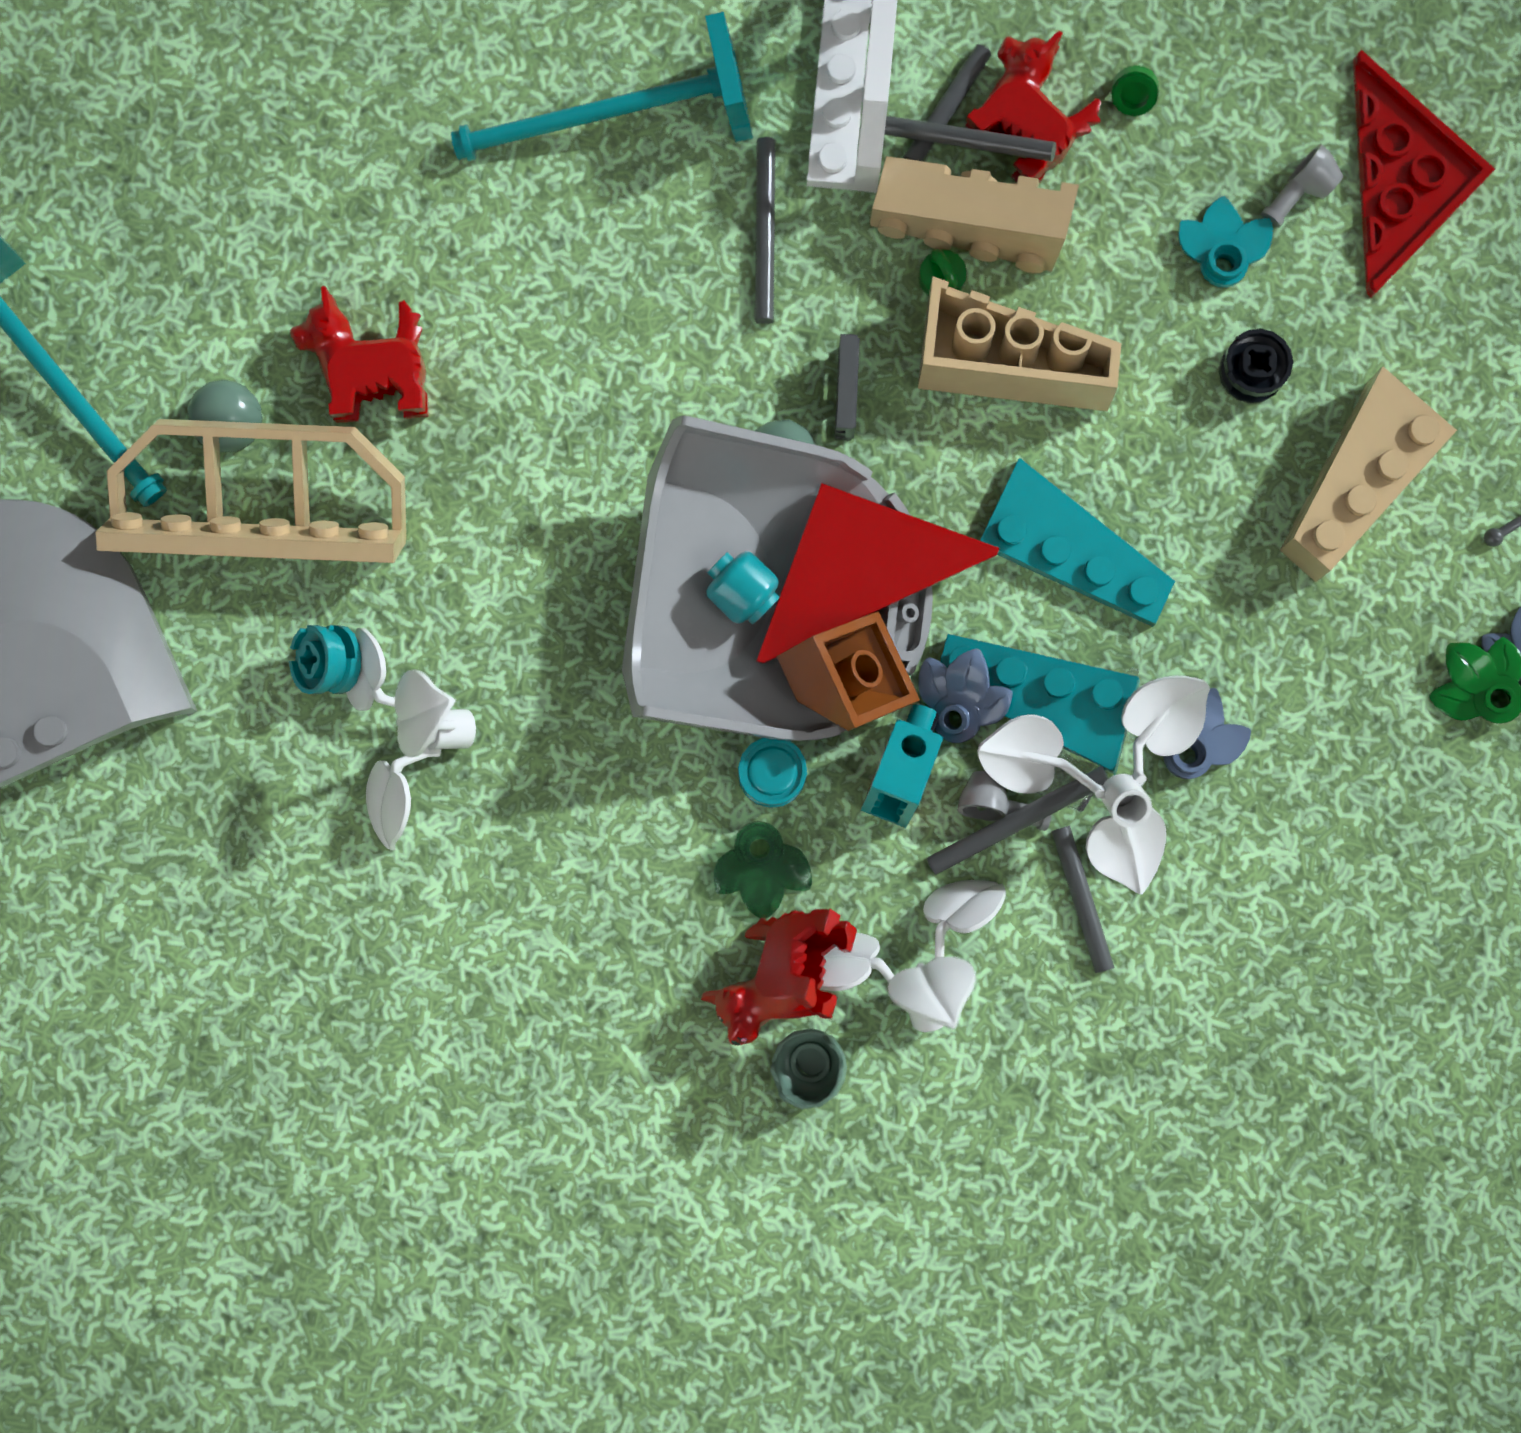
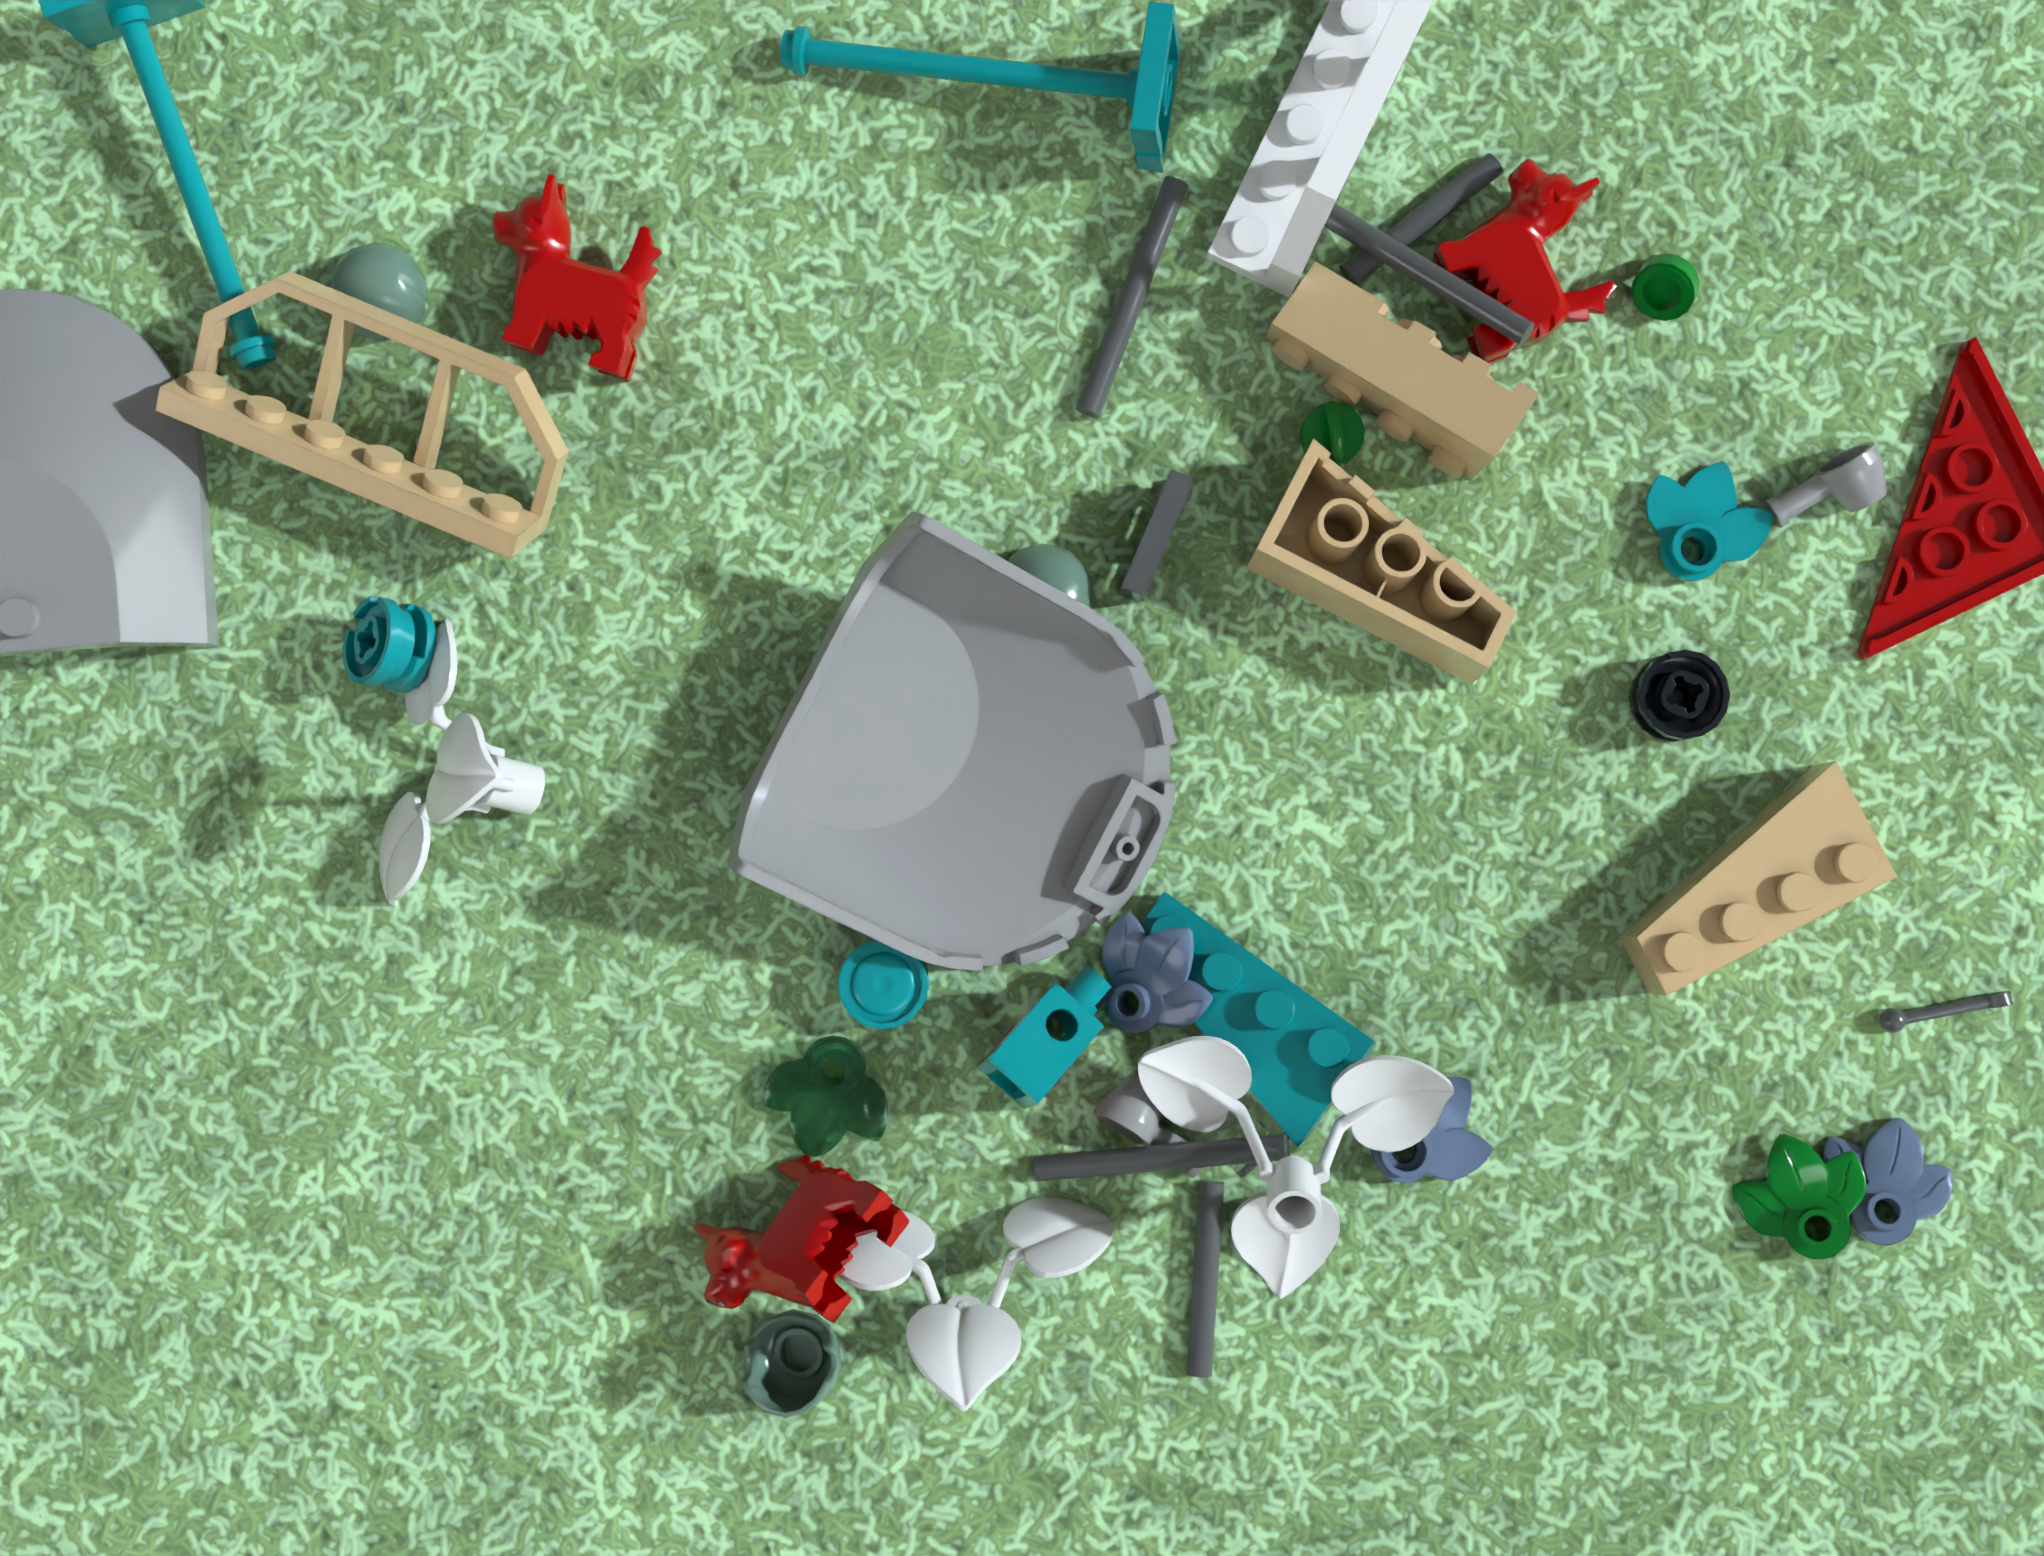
camera: 25 degrees right, 5 degrees up
(742, 587) = (928, 746): teal head -> none
(849, 673) = (1021, 903): dark orange slope -> none
(858, 562) = (1084, 766): red tile -> none
(1065, 543) = (1353, 829): teal wing -> none

